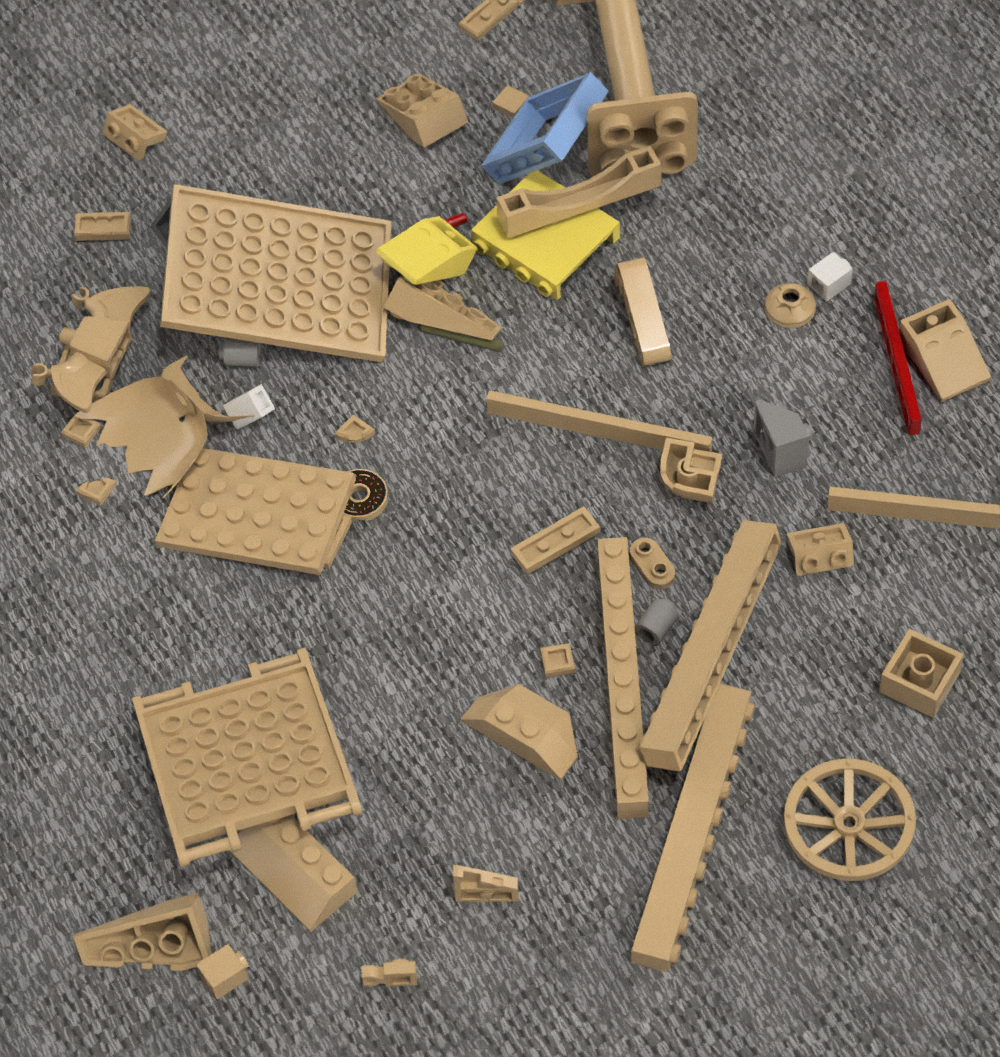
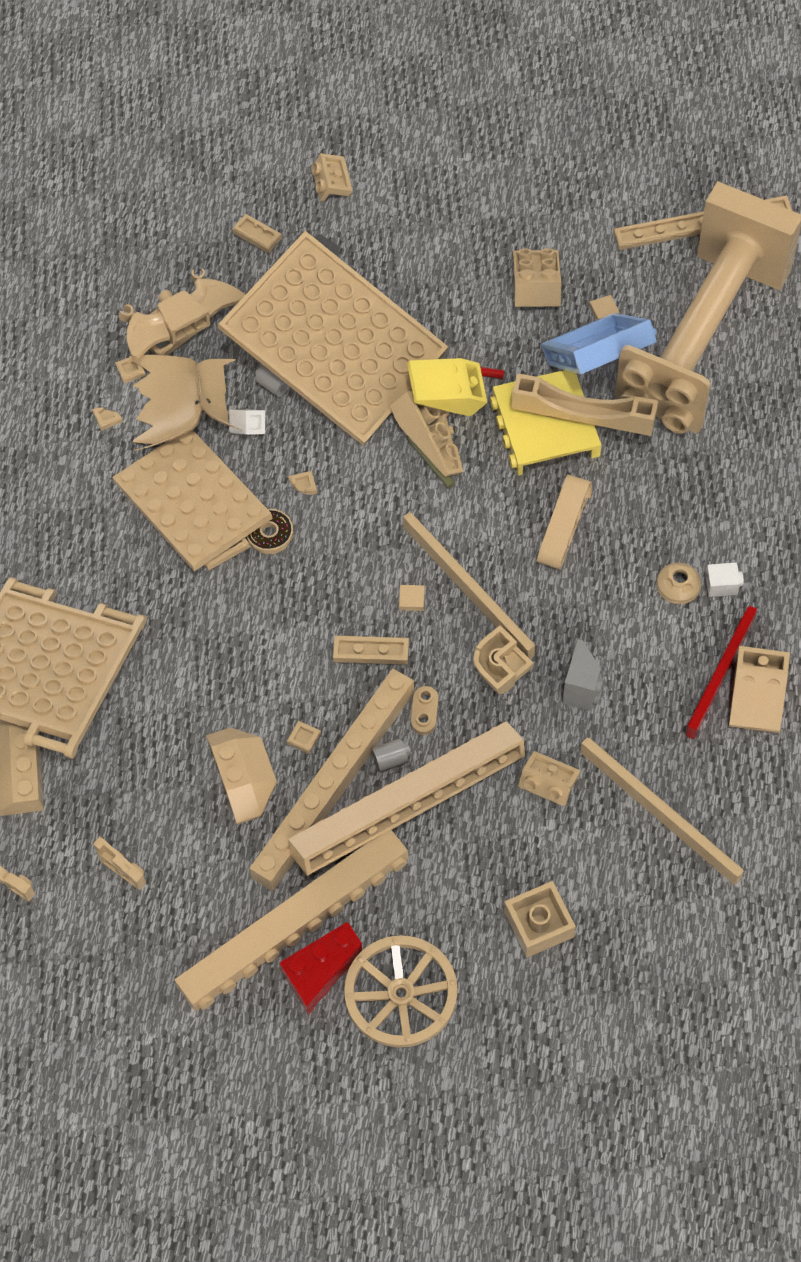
camera: 35 degrees right, 5 degrees up
(552, 470) = (412, 597): none -> tan tile
(754, 849) = (320, 965): none -> red wedge

